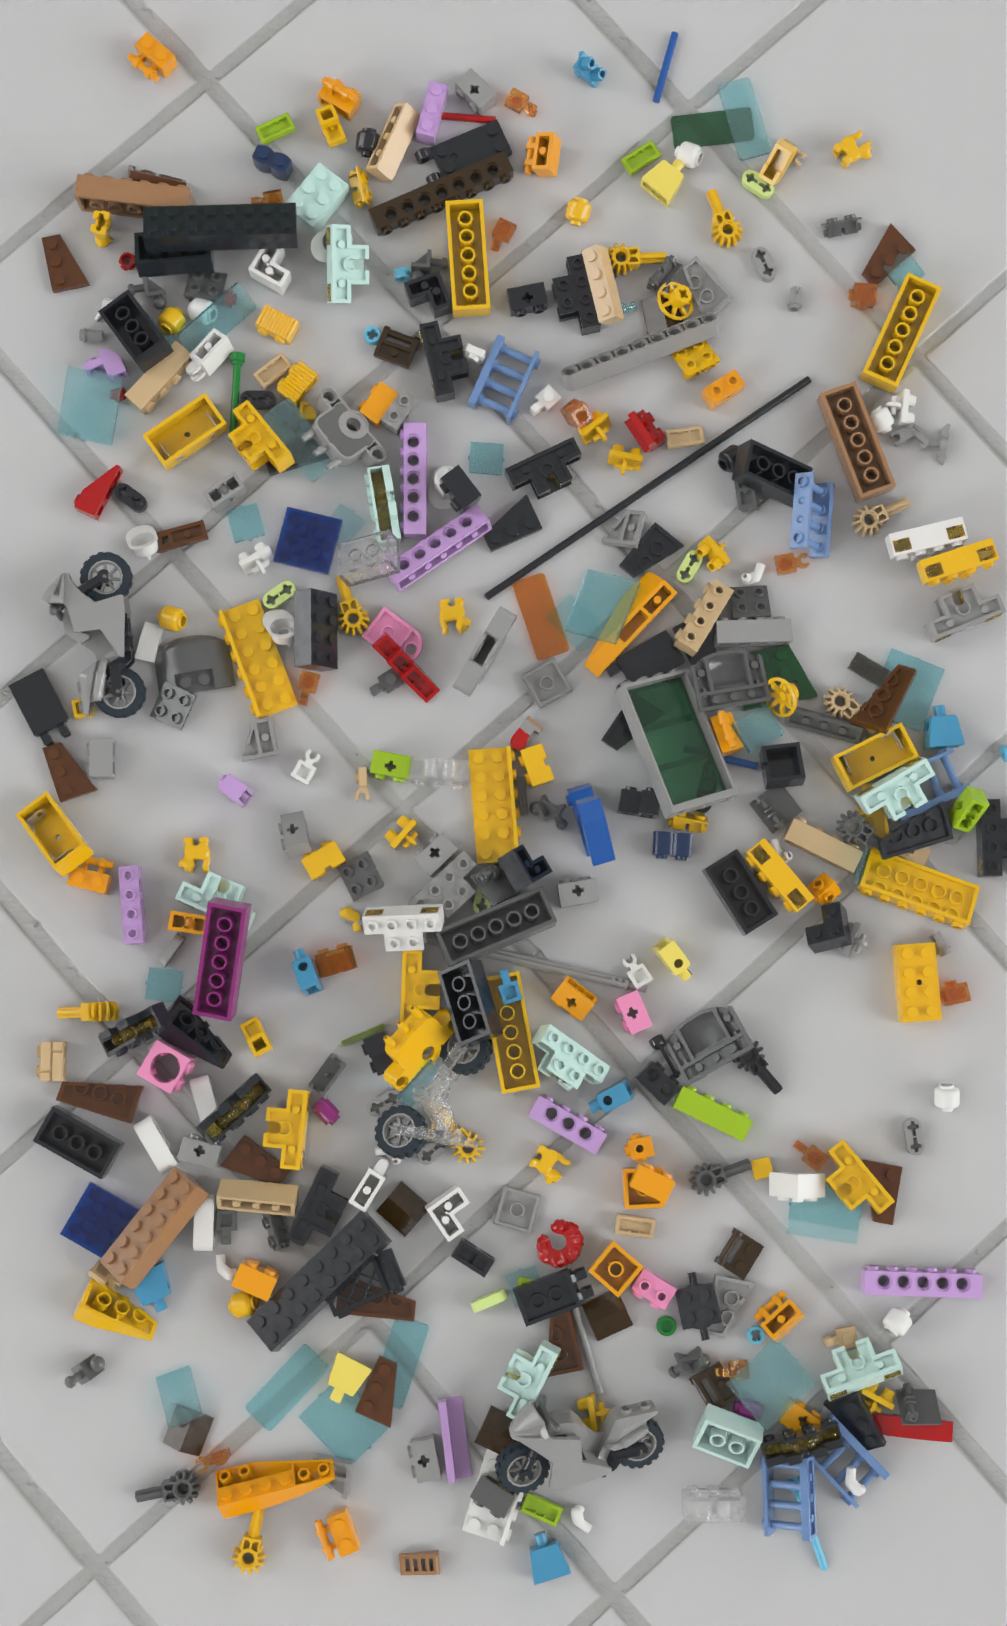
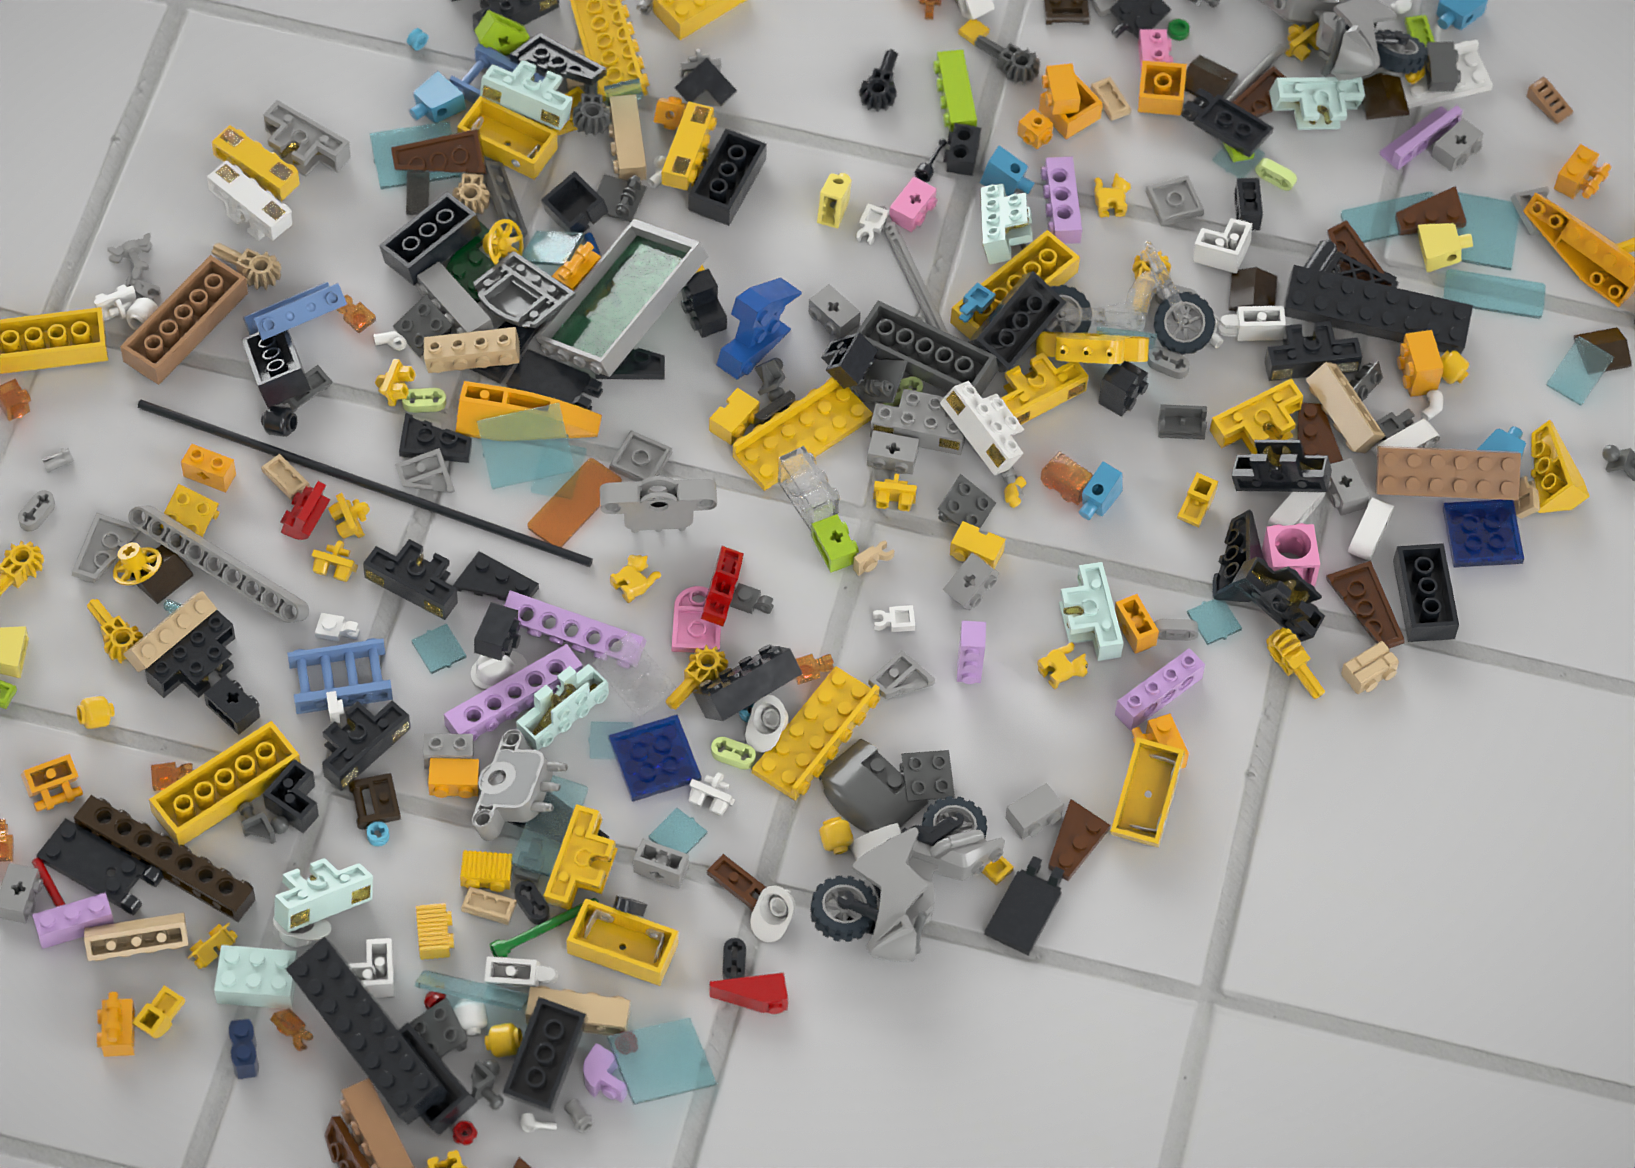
camera: 120 degrees left, 25 degrees down
(204, 453) = (629, 905): none -> black beam
(218, 1458) = (1605, 309): clear orange plate -> none
(221, 958) = (1147, 562): magenta brick -> none
(275, 129) = (199, 1074): lime plate -> none
(308, 411) = (509, 843): yellow tile -> none
(326, 1111) = (1217, 401): magenta brick -> none
(365, 1032) = (1120, 415): lime piece -> none
(367, 141) = (152, 965): black head -> none
(402, 274) = (287, 842): medium azure bush -> none
(528, 727) = (710, 445): leg -> none
(569, 1253) = (1178, 135): red piece -> none
(572, 989) = (939, 257): light orange brick -> none
(576, 413) = (331, 583): clear orange brick -> none
(668, 271) = (114, 592): dark grey hinge -> none
(672, 844) = (724, 260): dark blue brick -> none
(708, 1042) = (893, 124): dark grey slope -> none
(817, 647) = (430, 237): none -> black brick

